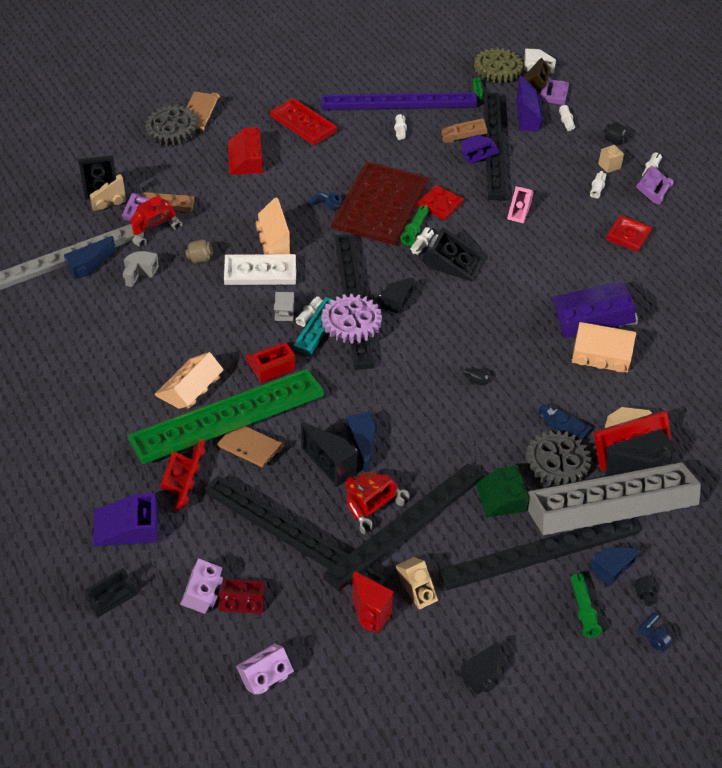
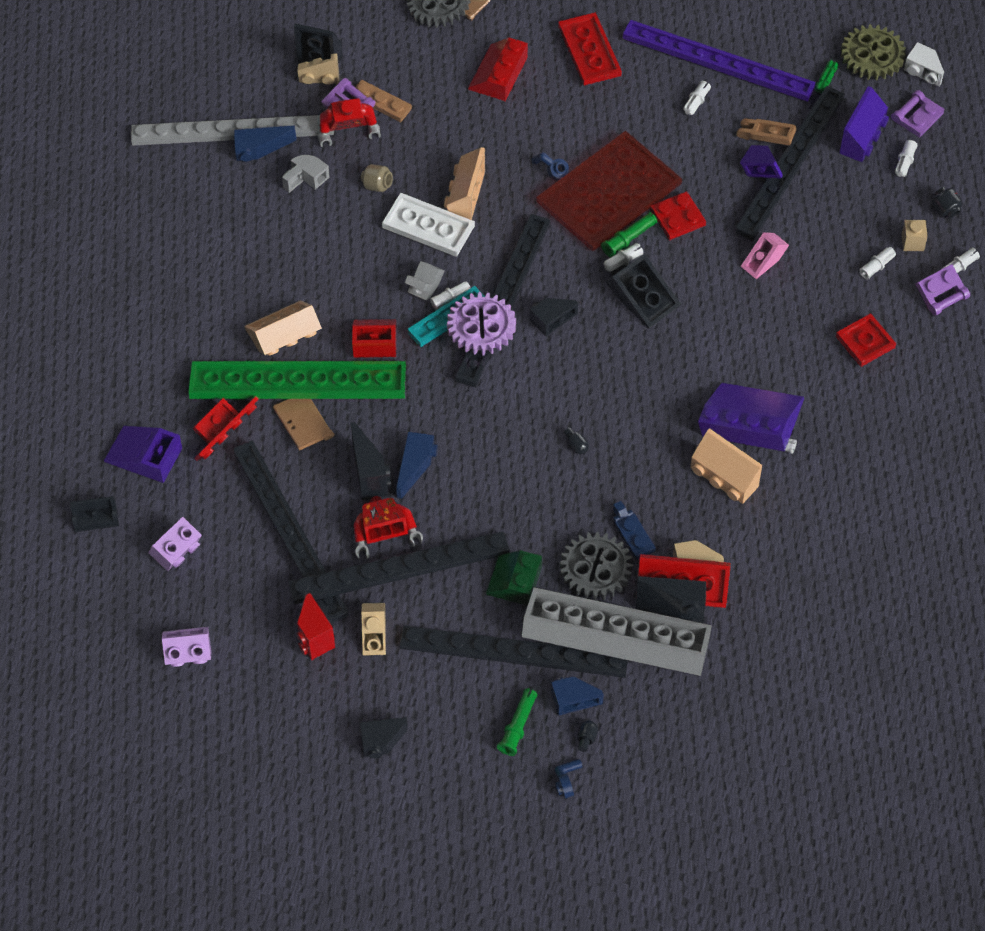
camera: 30 degrees right, 10 degrees up
(241, 596) = (208, 568): dark red bracket -> none
(538, 75) = (905, 87): dark brown slope -> none

